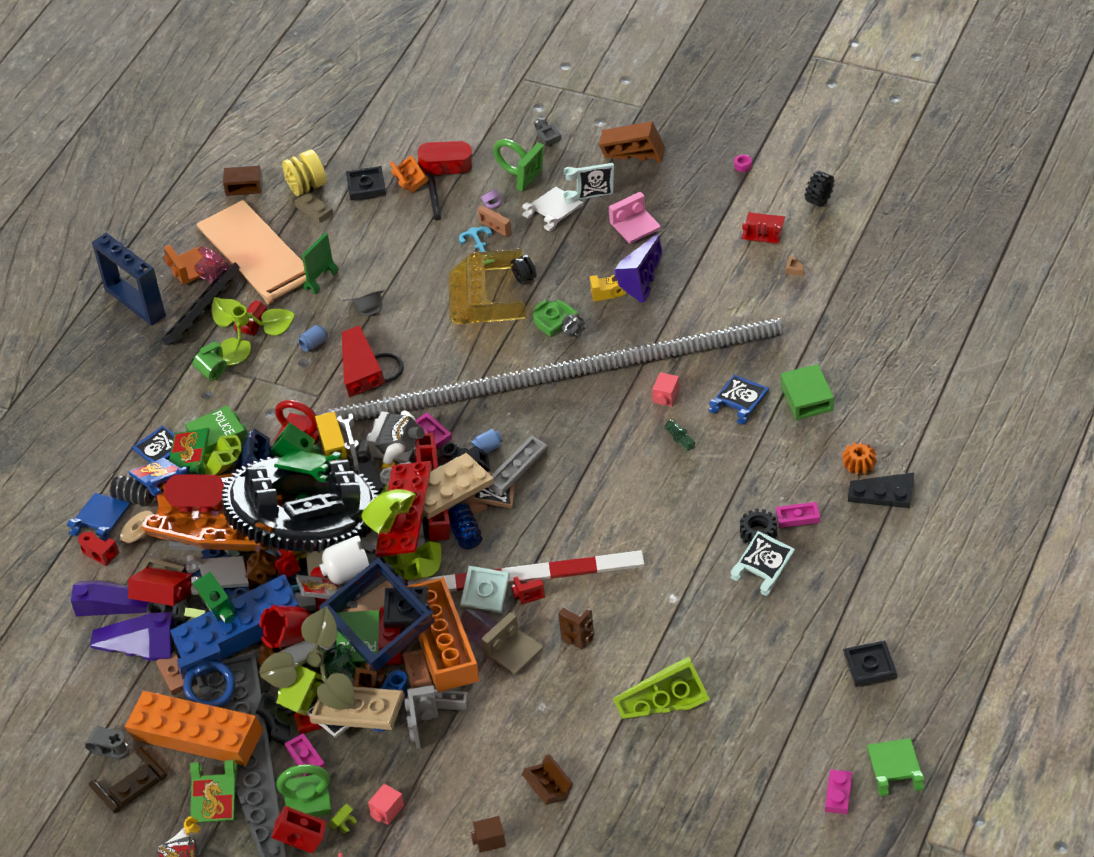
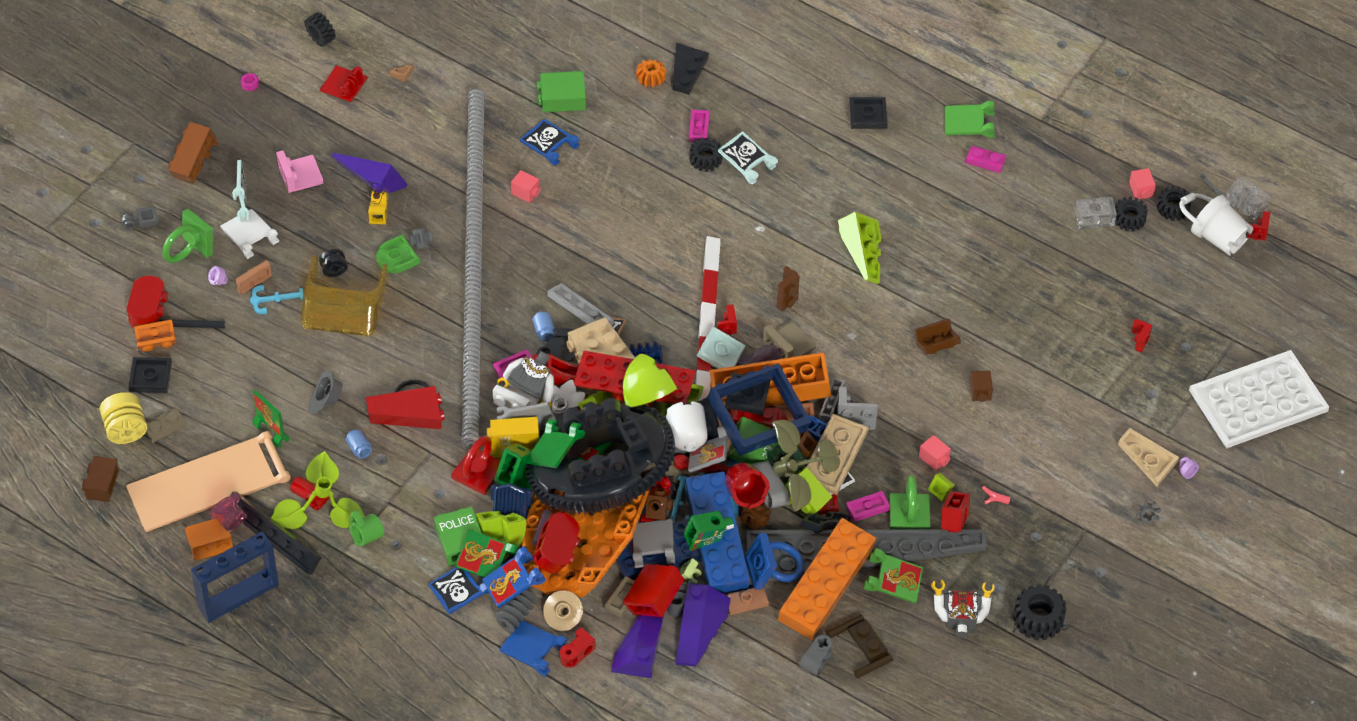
camera: 85 degrees left, 5 degrees up
(680, 435) = (582, 187): clear green axle -> none

